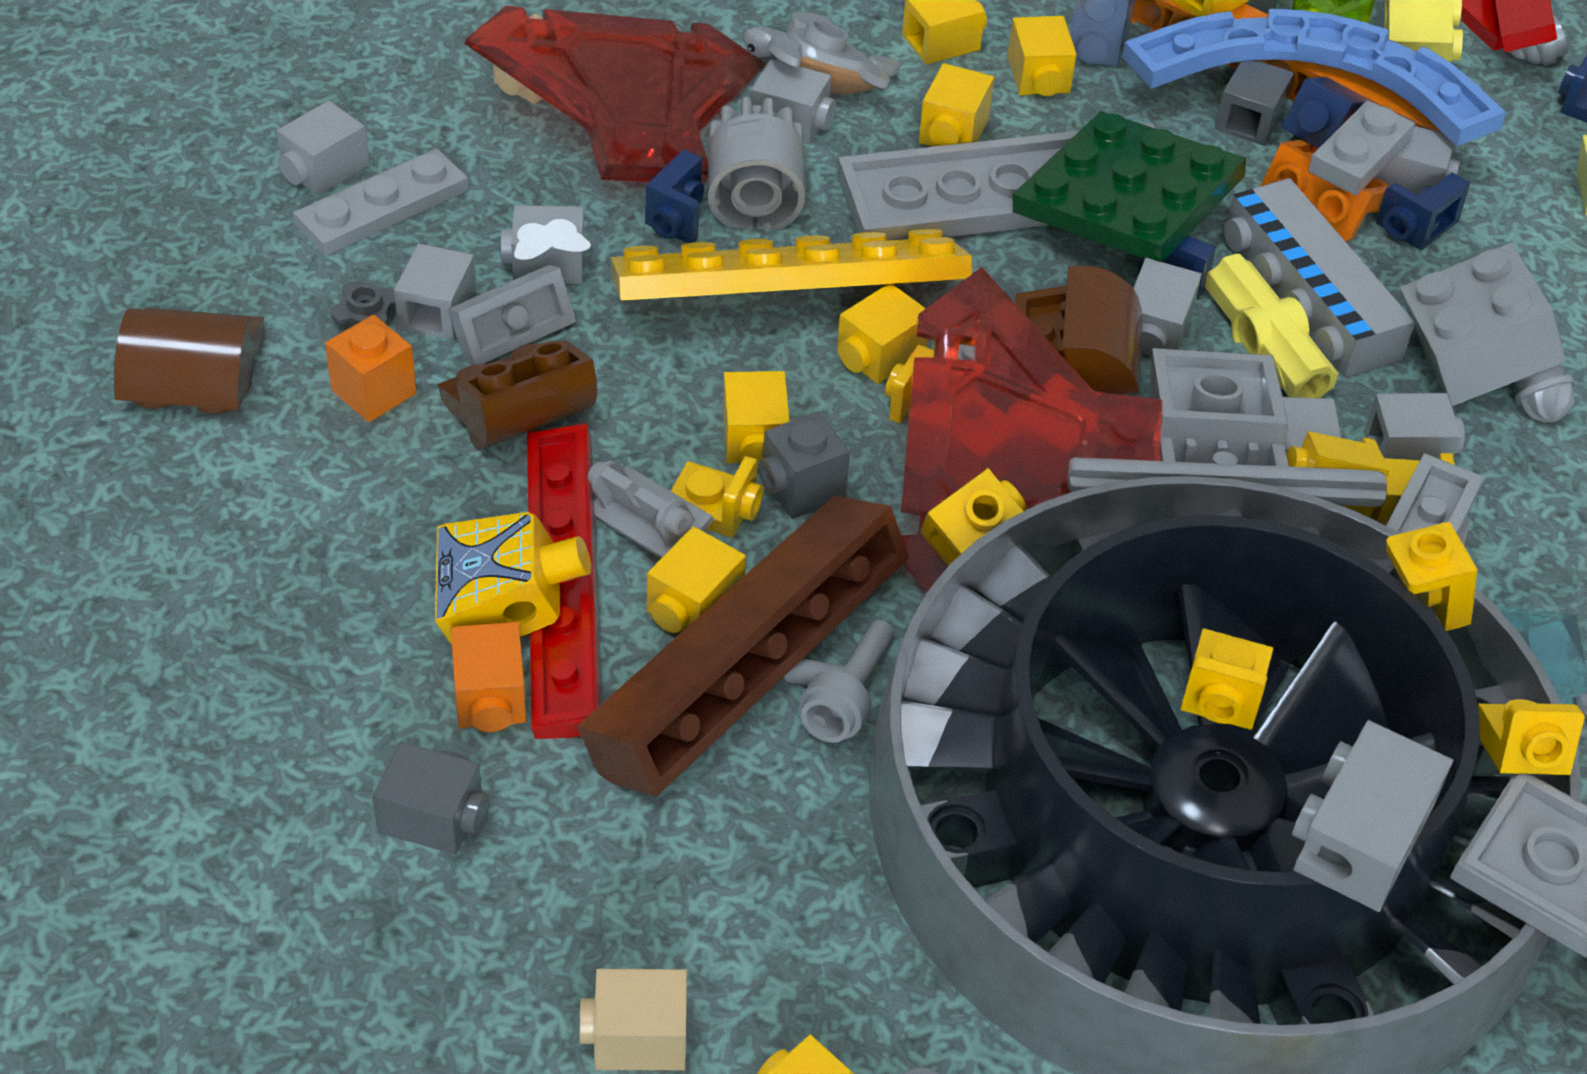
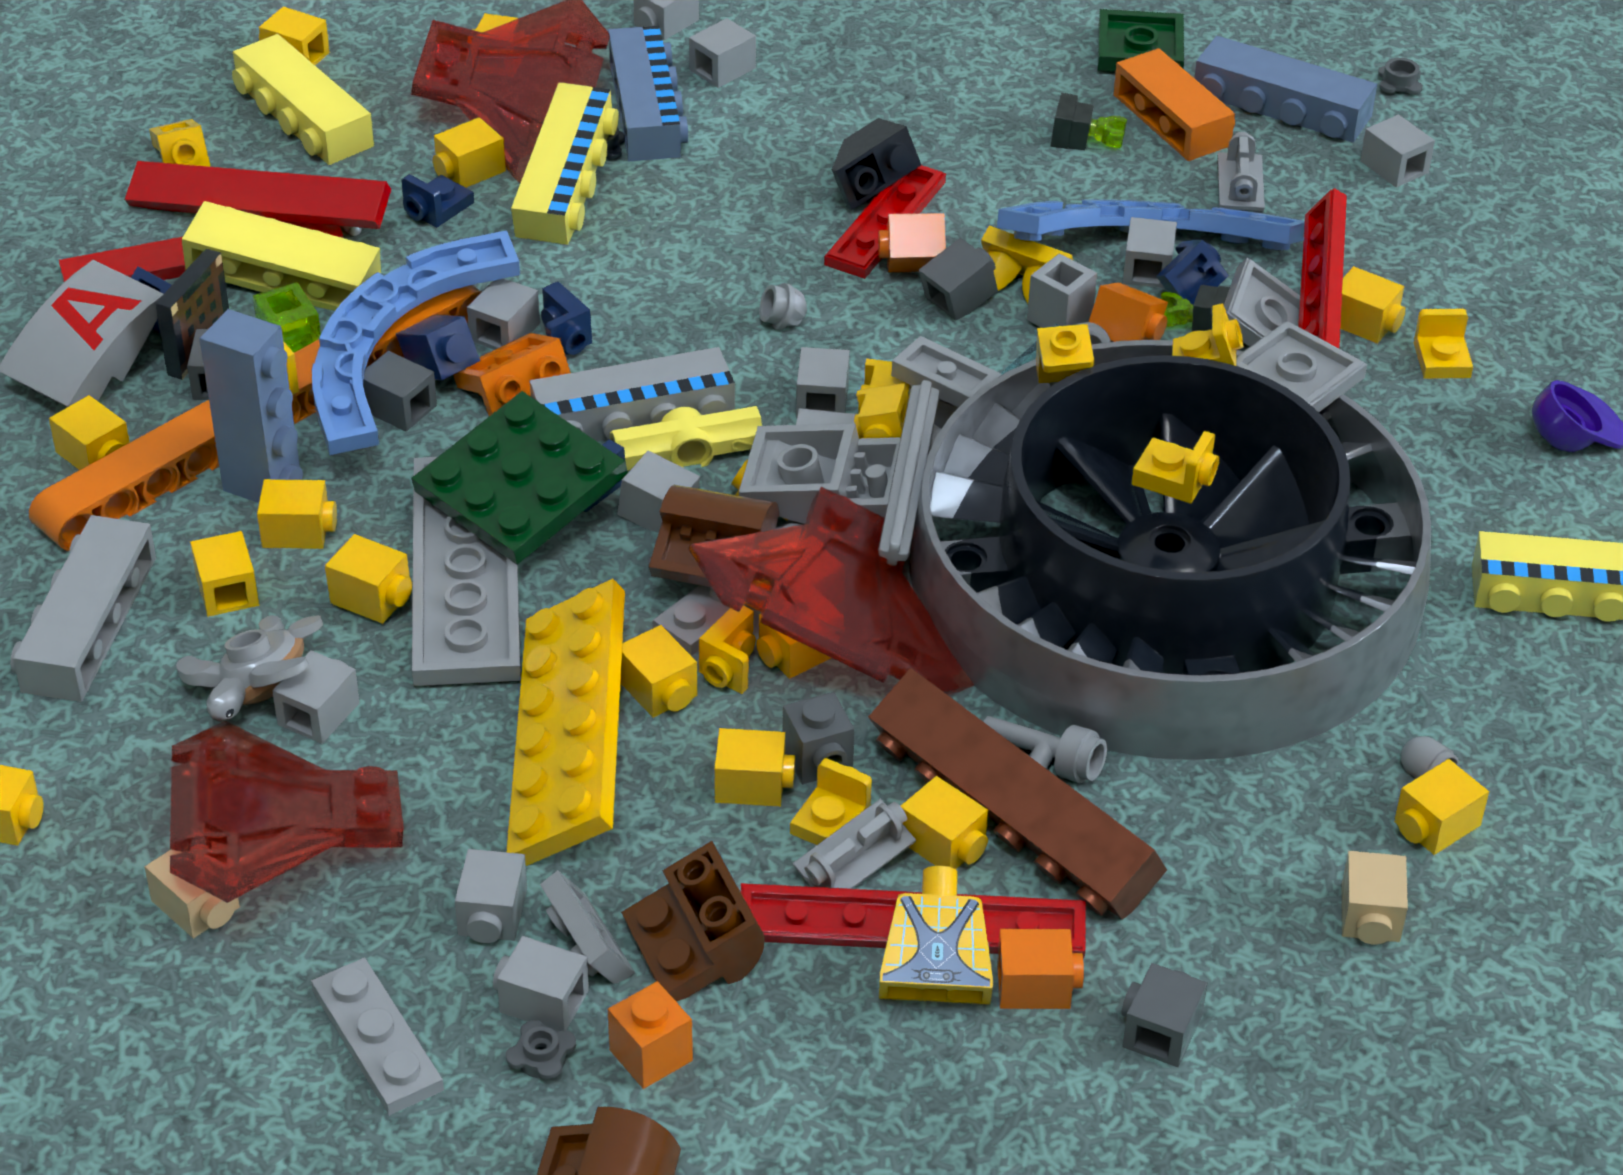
camera: 80 degrees left, 5 degrees down
(322, 148) = (297, 1071): light grey brick -> none
(558, 233) = (510, 878): white sticker -> none
(675, 198) = (438, 798): dark blue bracket -> none
(756, 166) = (420, 722): light grey gear -> none
(970, 514) = (927, 626): yellow brick -> none
(1361, 147) = (509, 327): light grey plate -> none
(1370, 814) = (1313, 412): light grey brick -> none
(1483, 324) = (733, 306): light grey brick -> none

